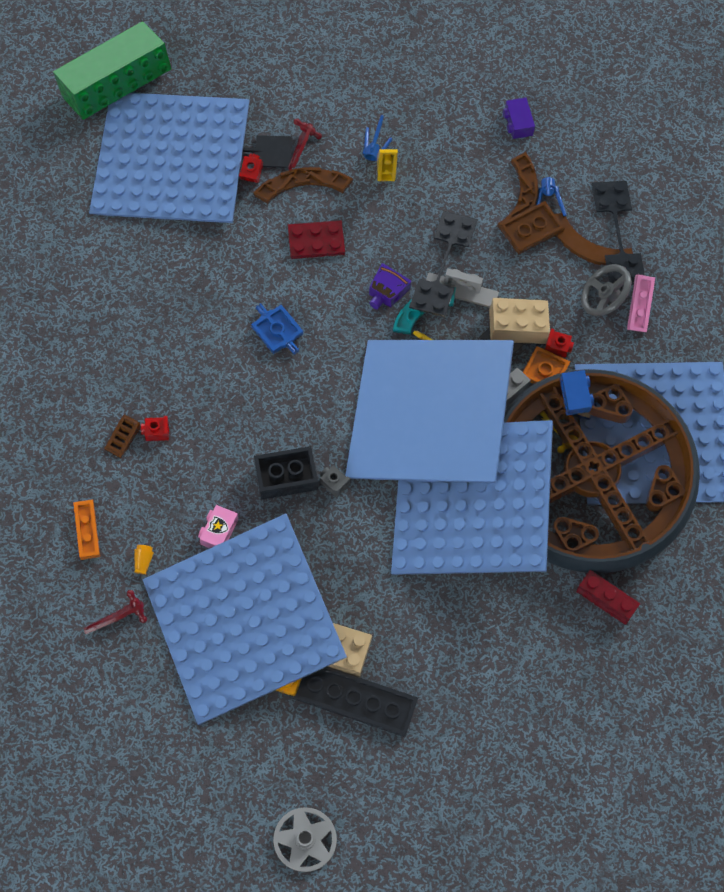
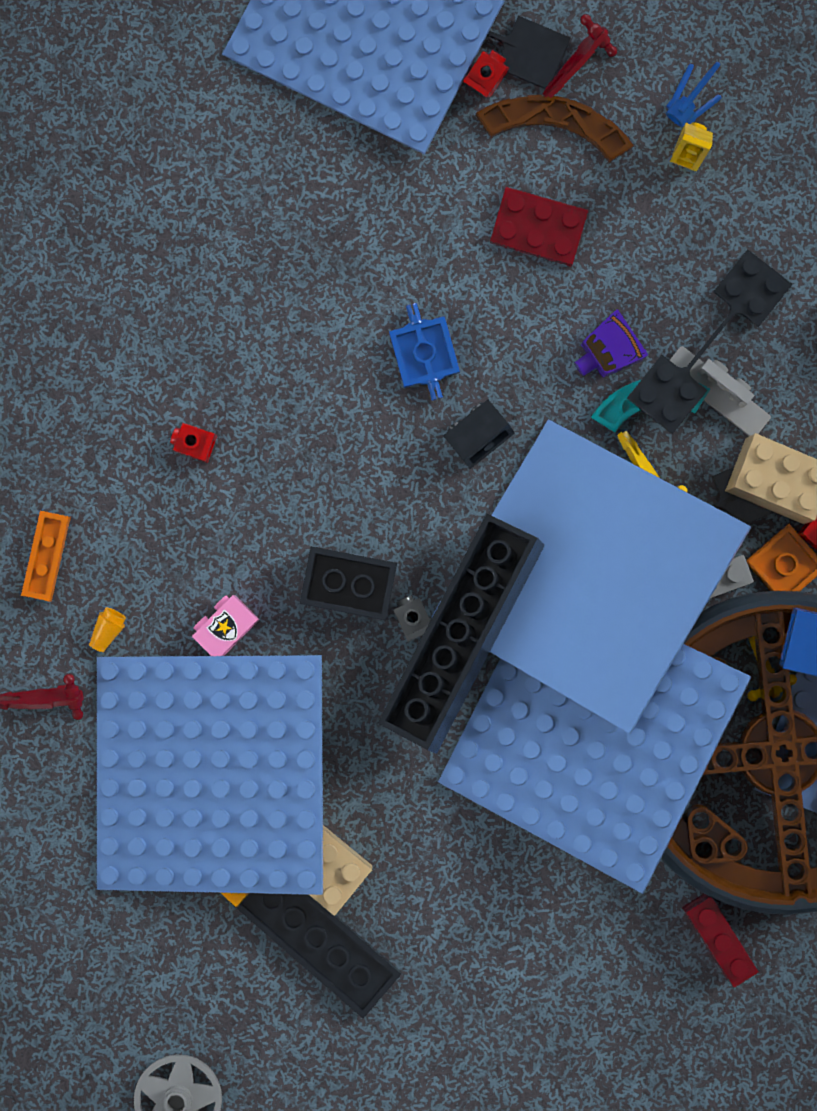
camera: 25 degrees right, 20 degrees up
(117, 433) = (149, 443): reddish brown slope -> none
(329, 360) = (478, 433): none -> black brick
(368, 472) = (461, 633): none -> black brick

